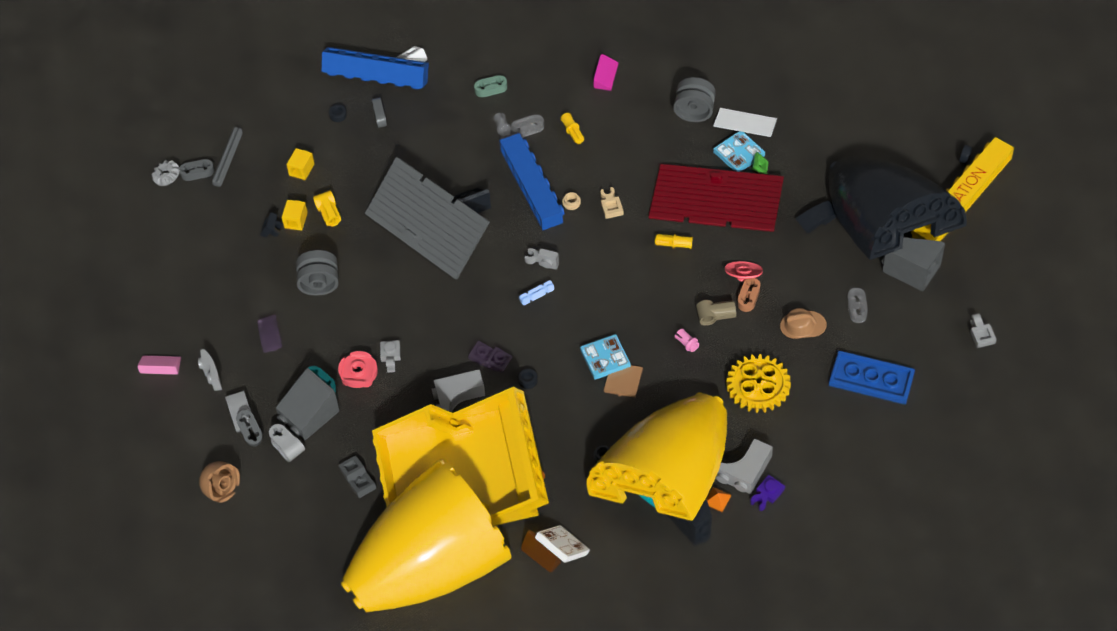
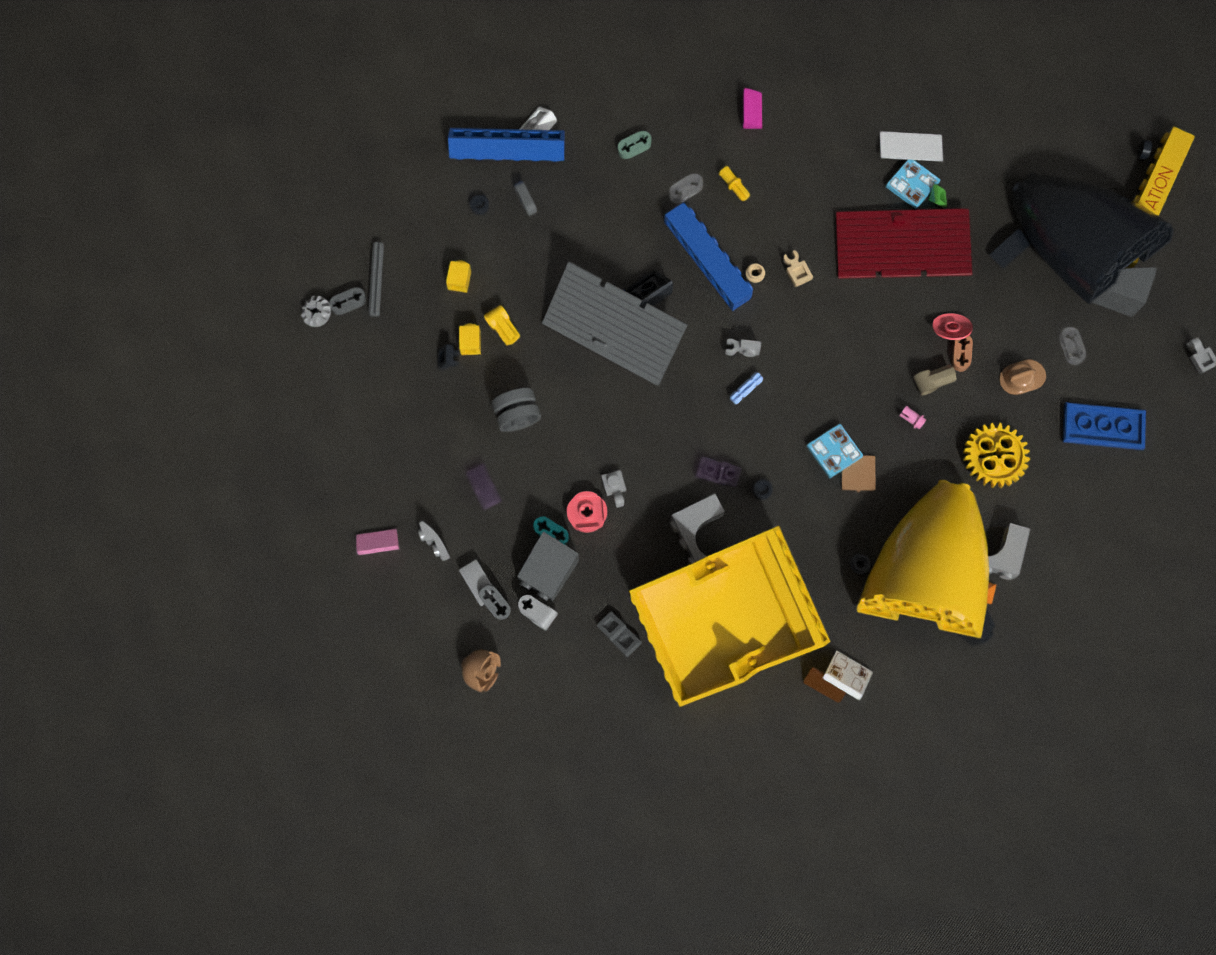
camera: 15 degrees left, 20 degrees up
(425, 544) = (710, 703): yellow panel -> none
(503, 127) = (661, 195): clear axle -> none
(673, 241) = (872, 302): yellow axle -> none
(694, 99) = (857, 131): dark grey wheel -> none
(769, 491) = (1032, 573): dark purple plate -> none

